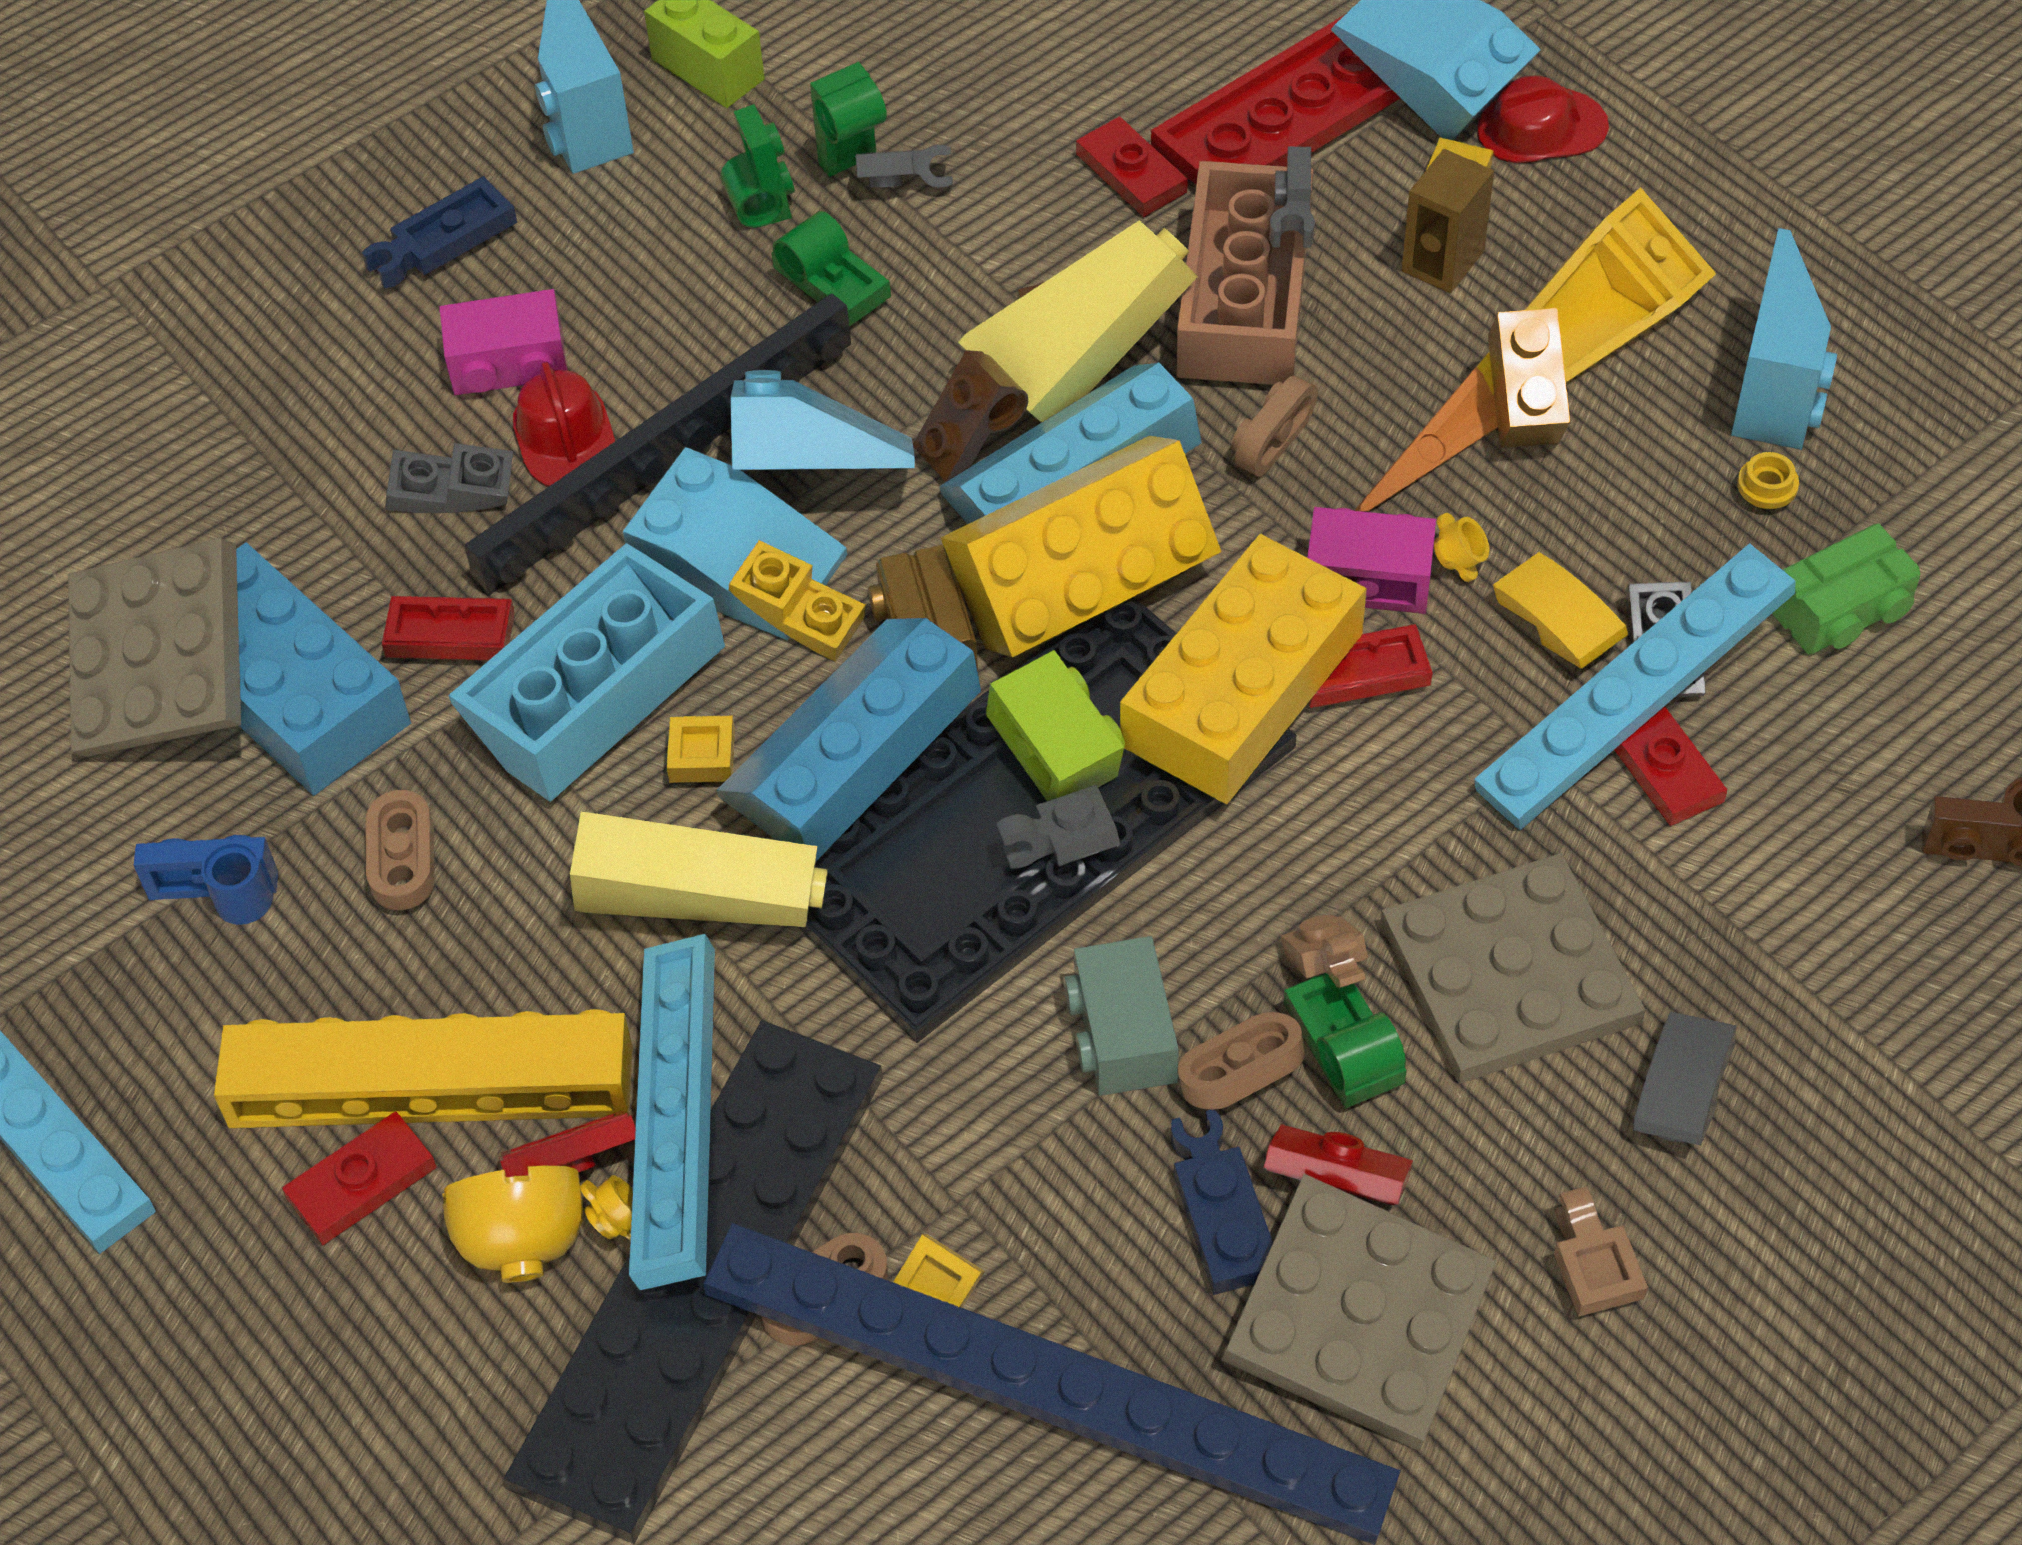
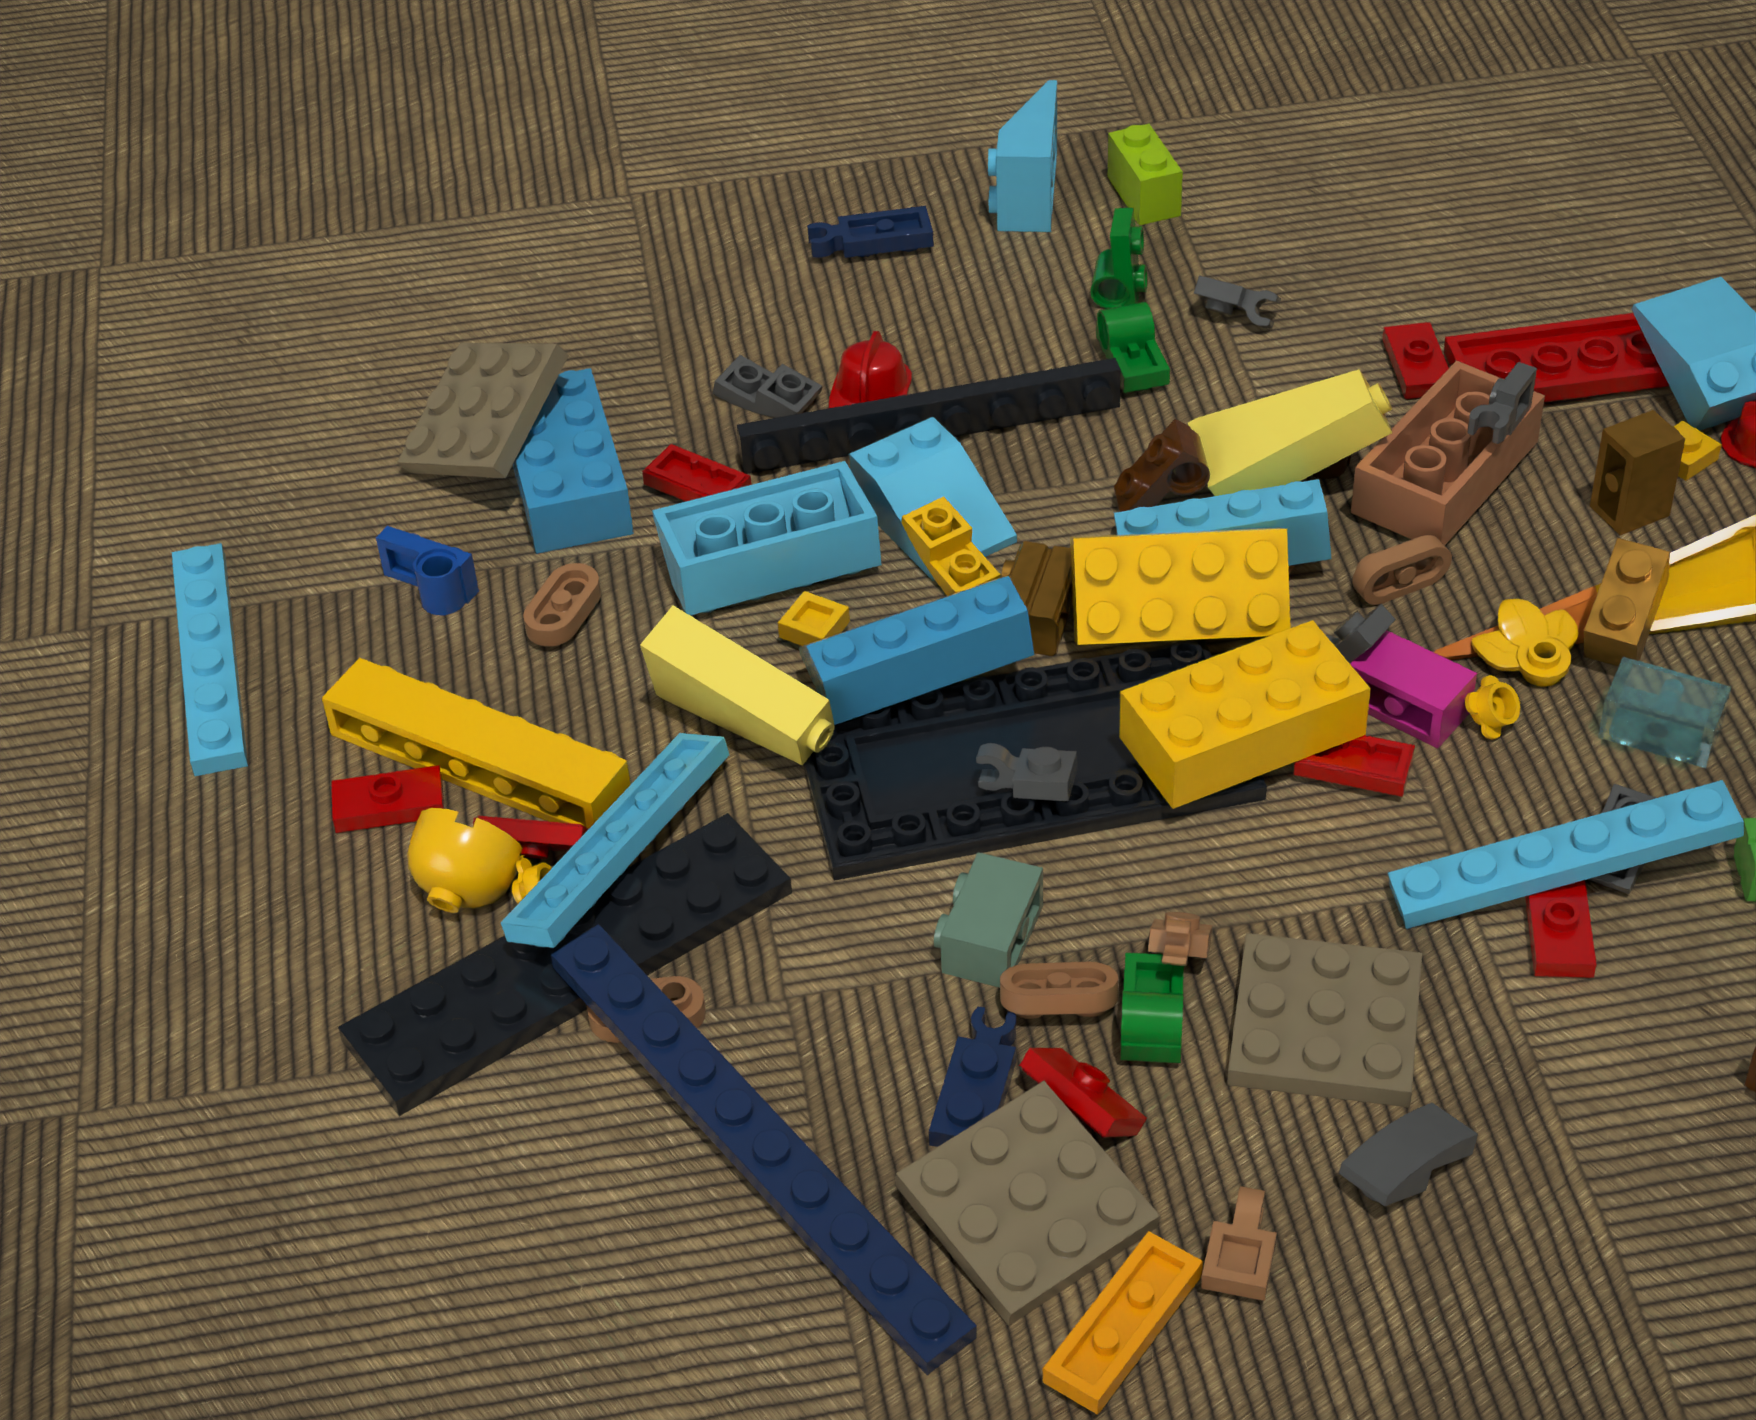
camera: 30 degrees right, 10 degrees down
(501, 340) = (854, 306): dark pink brick -> none
(798, 428) = (1026, 431): medium azure slope -> none
(844, 116) = (1207, 244): green plate -> none
(939, 1272) = (729, 1029): yellow plate -> none
(1055, 727) = (1072, 699): lime brick -> none
(1299, 523) = (1360, 633): none -> dark grey plate
(1443, 451) = (1529, 642): none -> yellow plate
(1534, 1393) = (1122, 1322): none -> light orange plate
(1562, 608) = (1544, 781): yellow slope -> none
(1625, 482) = (1664, 712): none -> clear light blue brick

